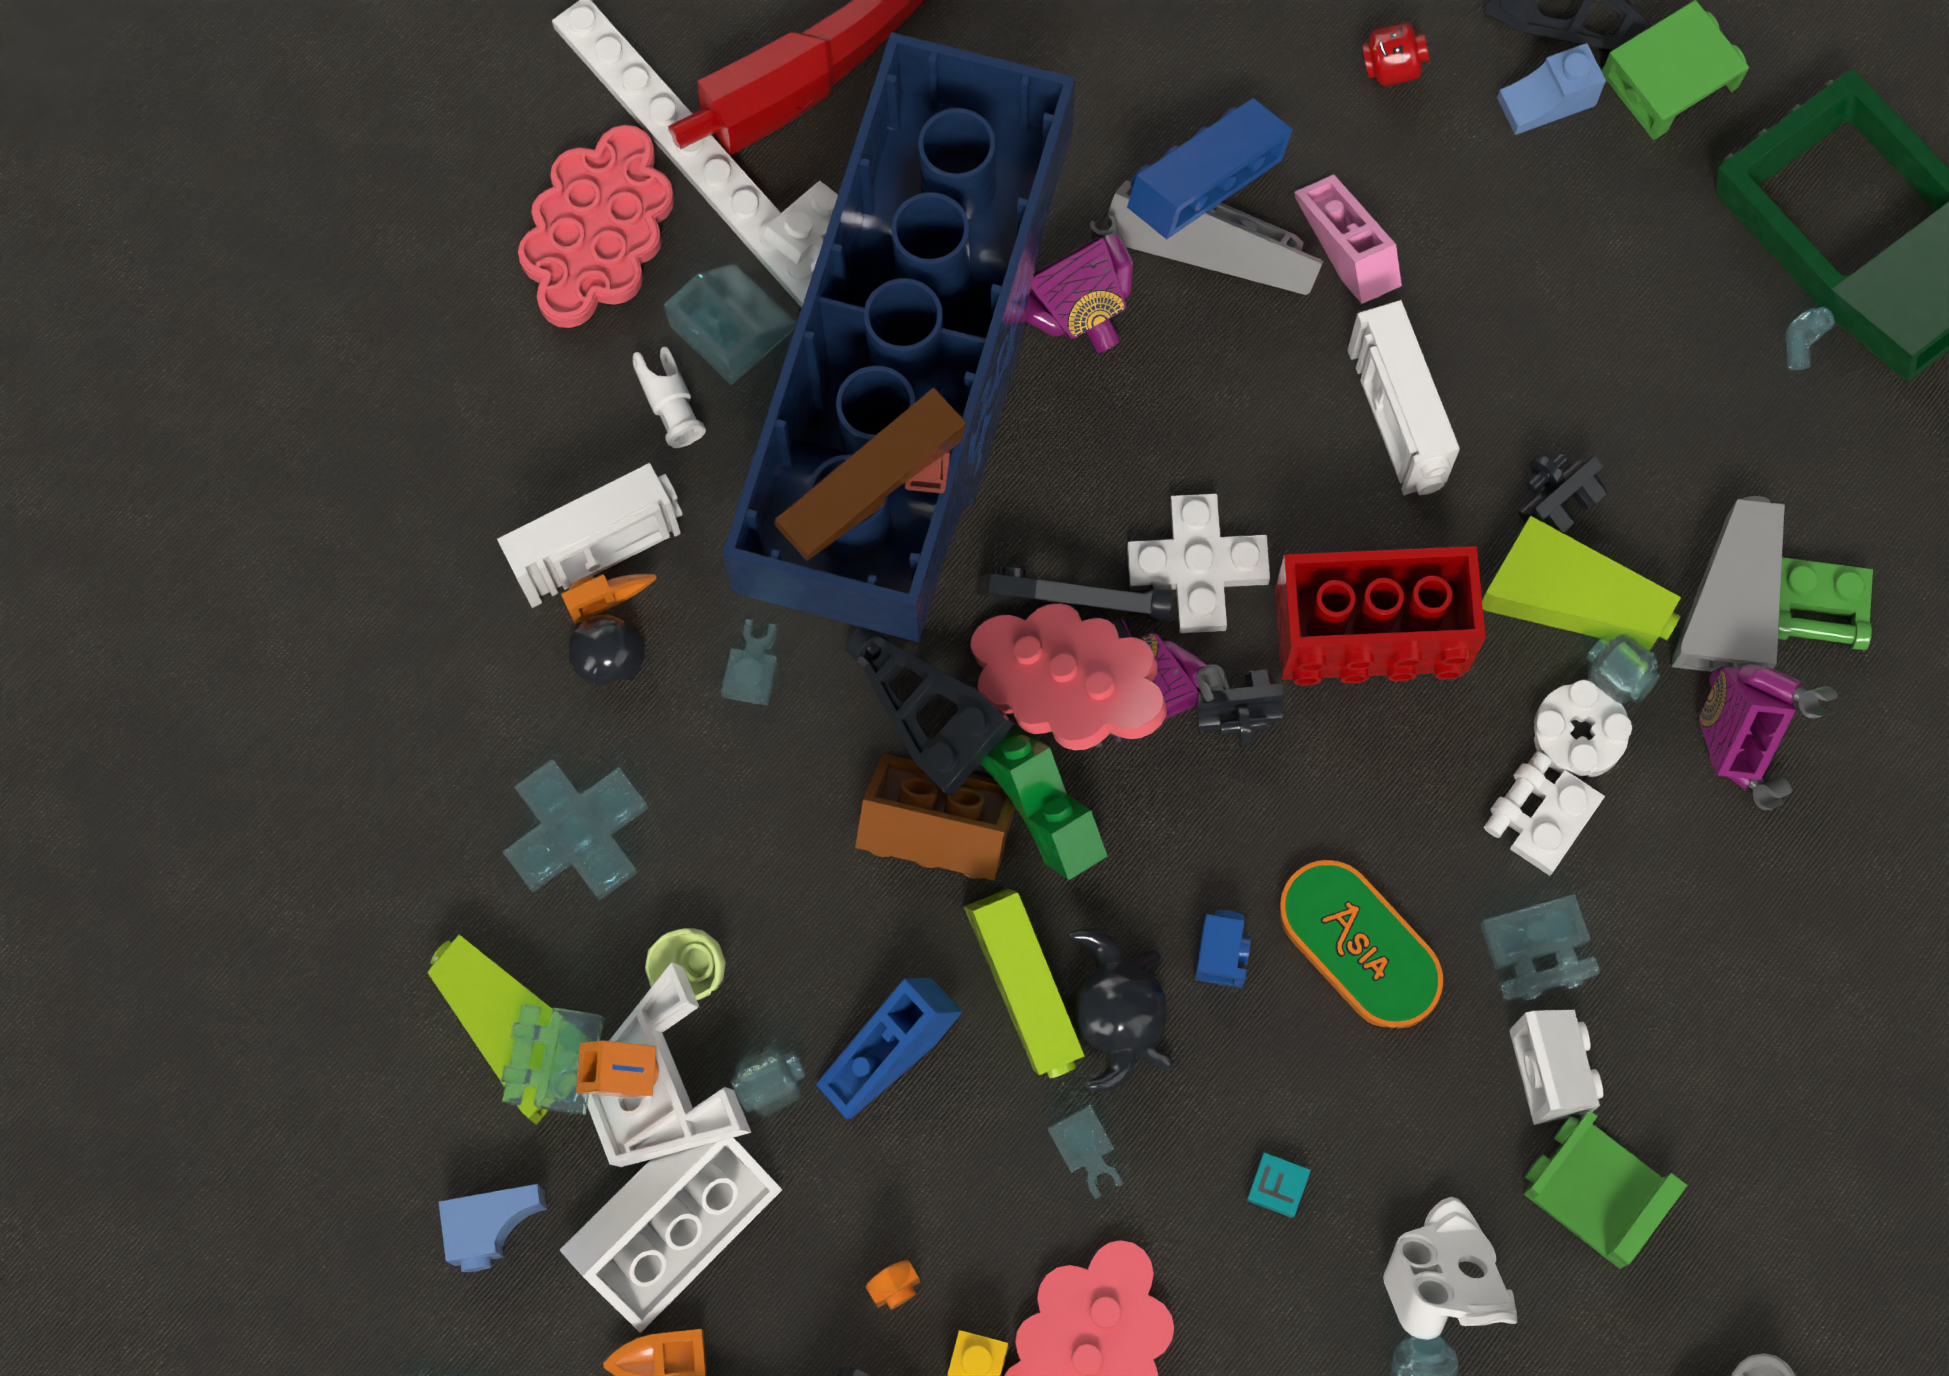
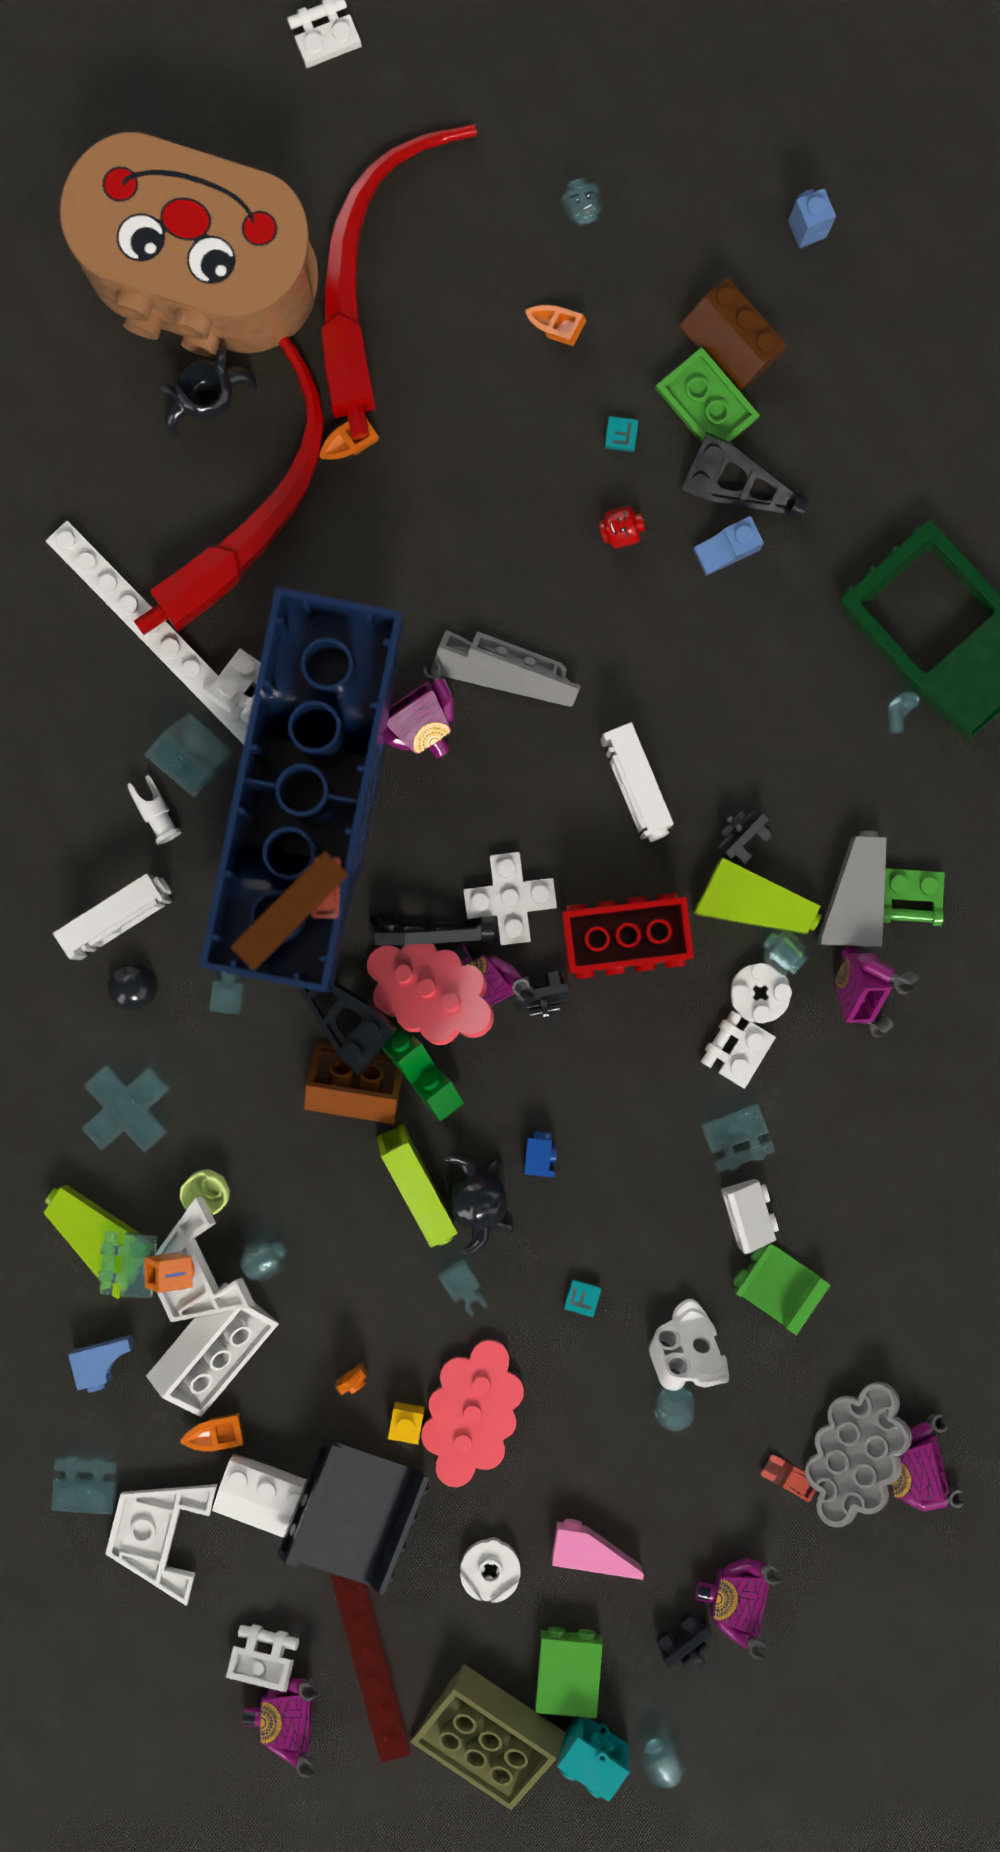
camera: 10 degrees left, 15 degrees up
(594, 595) = (119, 952): orange plate -> none
(596, 226) = (93, 691): coral plate -> none
(889, 1044) = (337, 1231): blue slope -> none
(1208, 168) = (499, 627): blue brick -> none
(1351, 238) = (597, 664): bright pink slope -> none
(1361, 944) = (626, 1143): green tile -> none
(1673, 67) = (812, 523): bright green panel -> none

